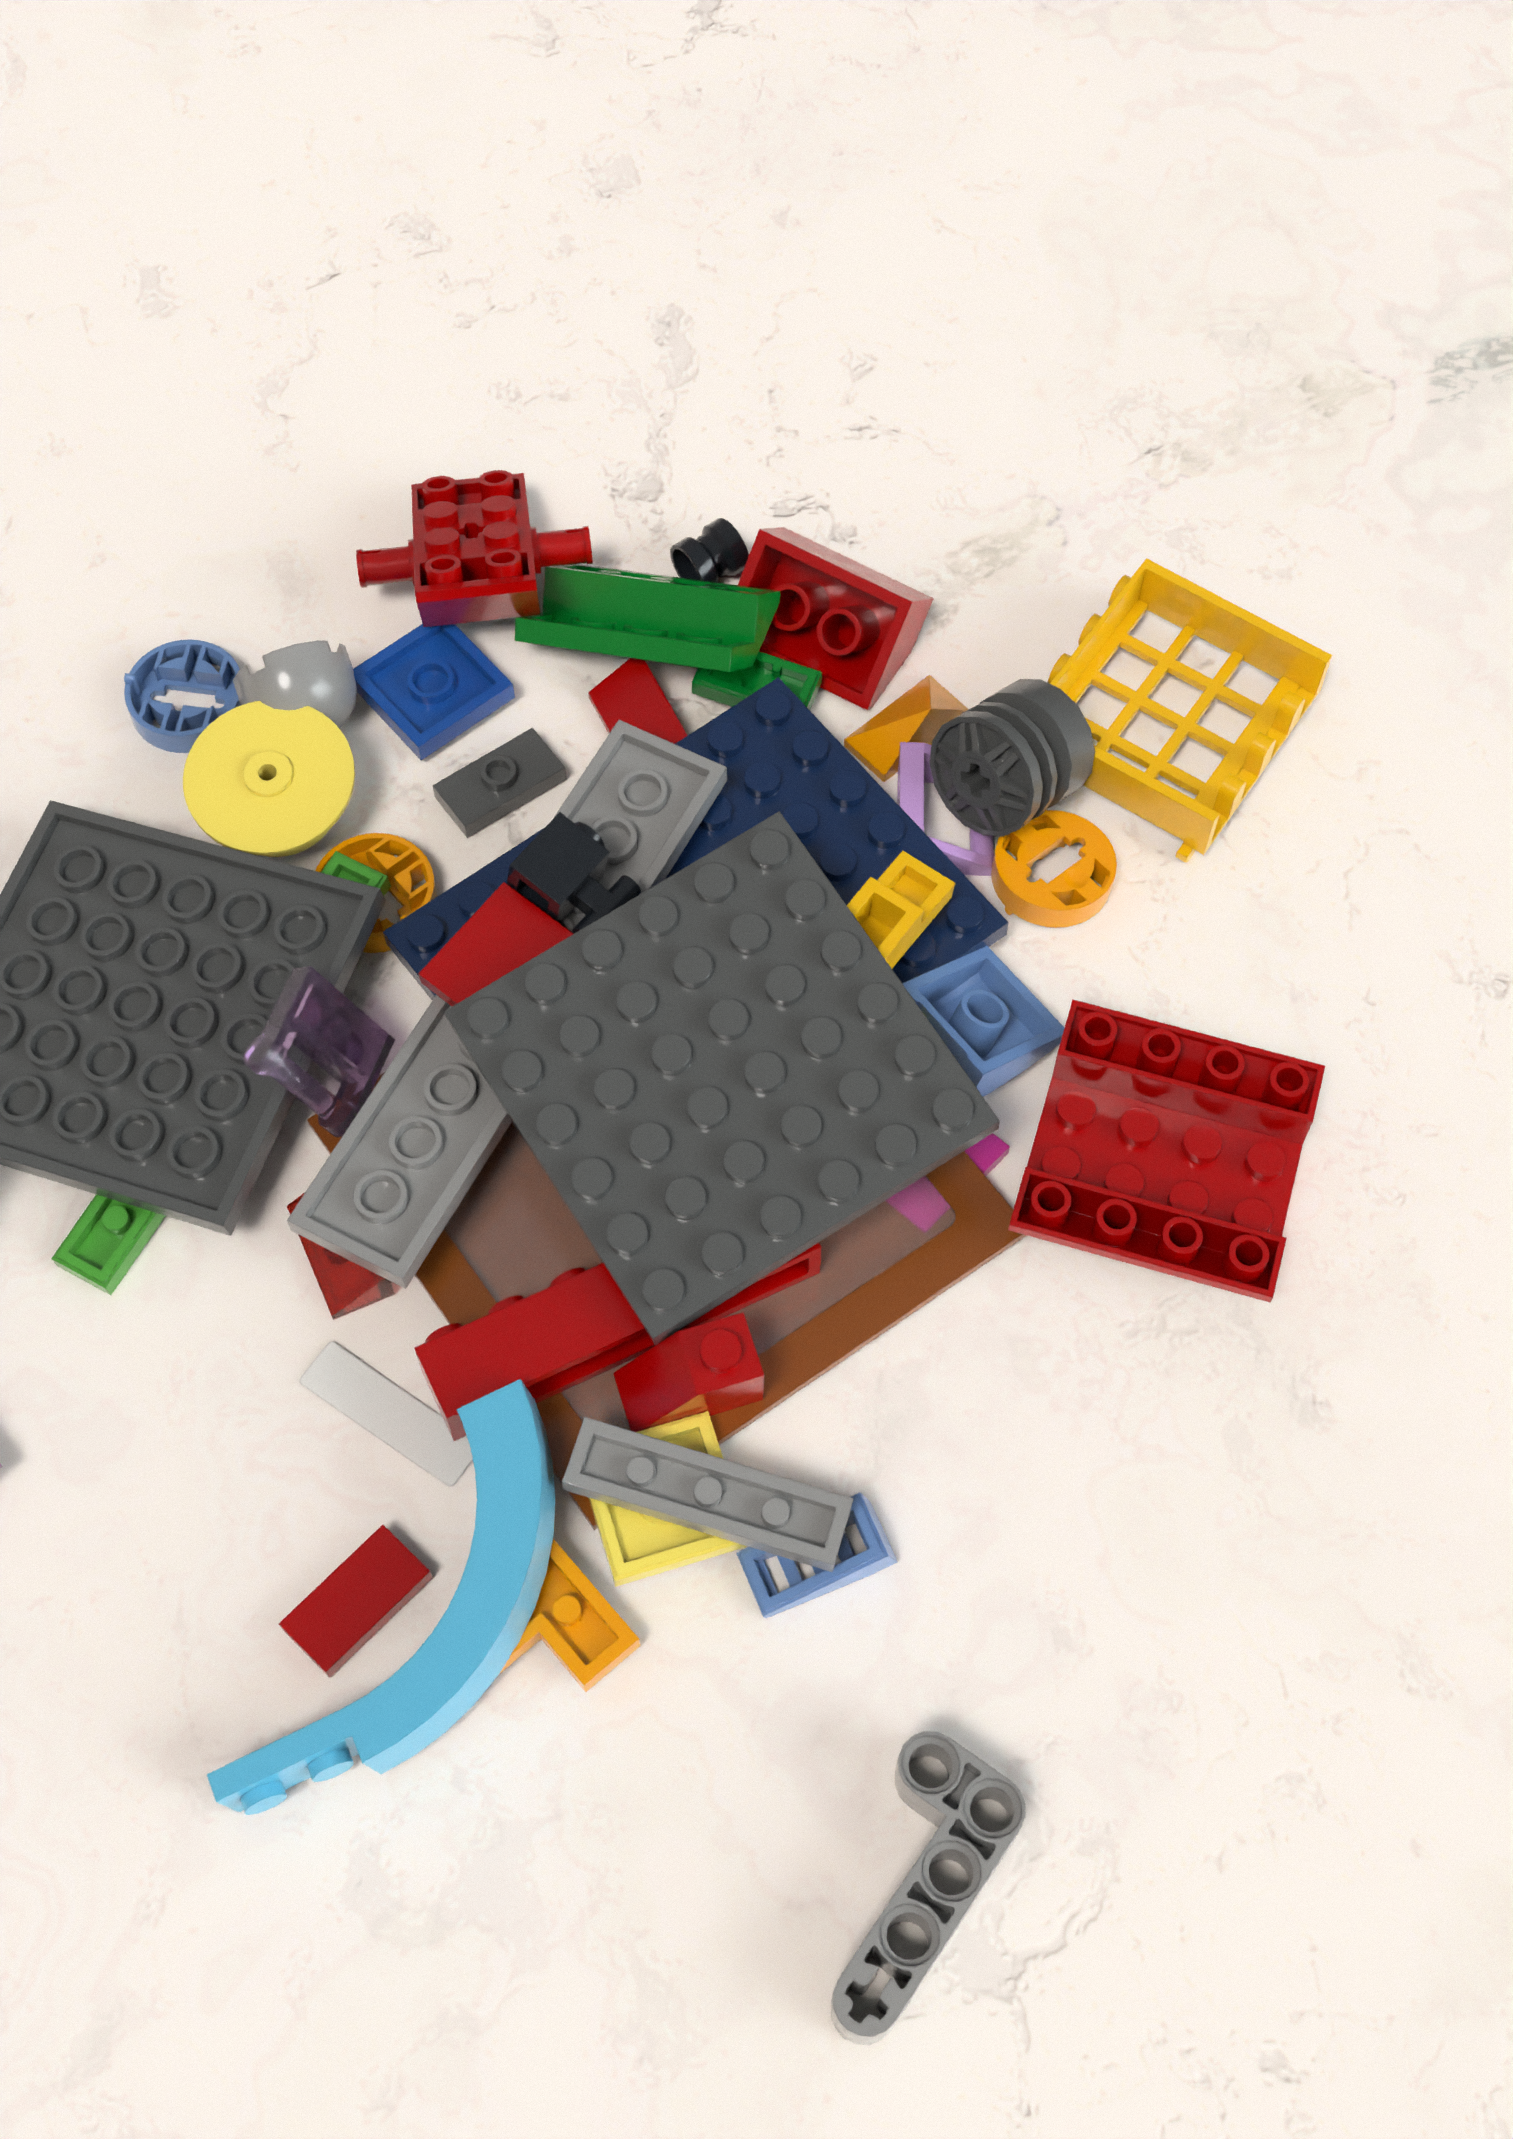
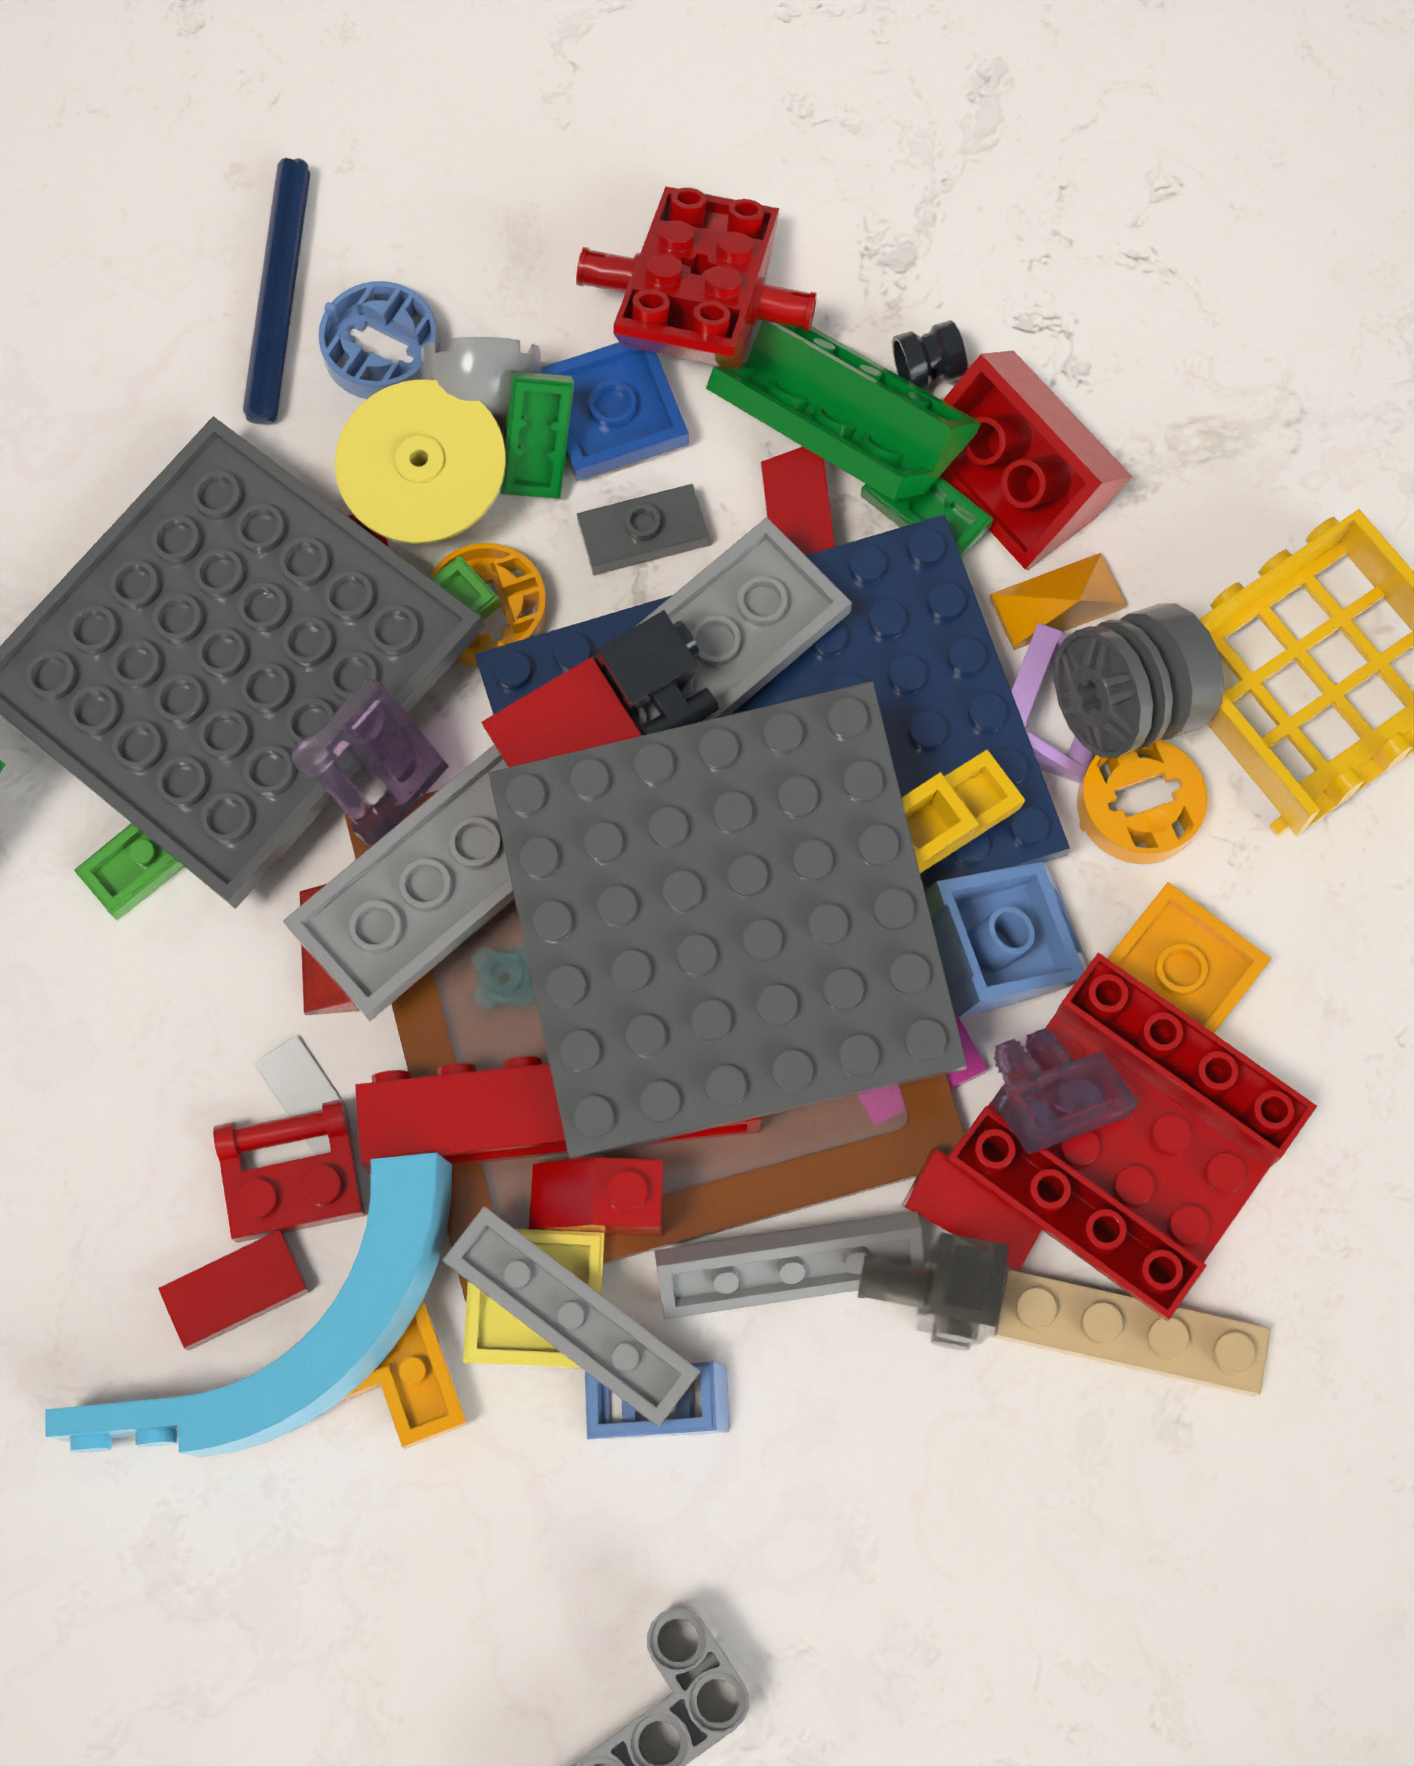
camera: 20 degrees right, 10 degrees up
(71, 684) = (276, 292): none -> dark blue axle
(372, 722) = (536, 434): none -> green plate
(380, 1487) = (291, 1192): none -> red plate
(522, 1229) = (490, 991): none -> clear light blue plate
(896, 1382) = (782, 1264): none -> light grey plate
(1048, 1274) = (967, 1209): none -> red tile
(1064, 1343) = (952, 1293): none -> clear smoke brick
(1085, 1136) = (1053, 1095): none -> clear purple hinge
(1155, 980) = (1189, 957): none -> light orange plate
(1239, 1335) = (1131, 1335): none -> tan plate

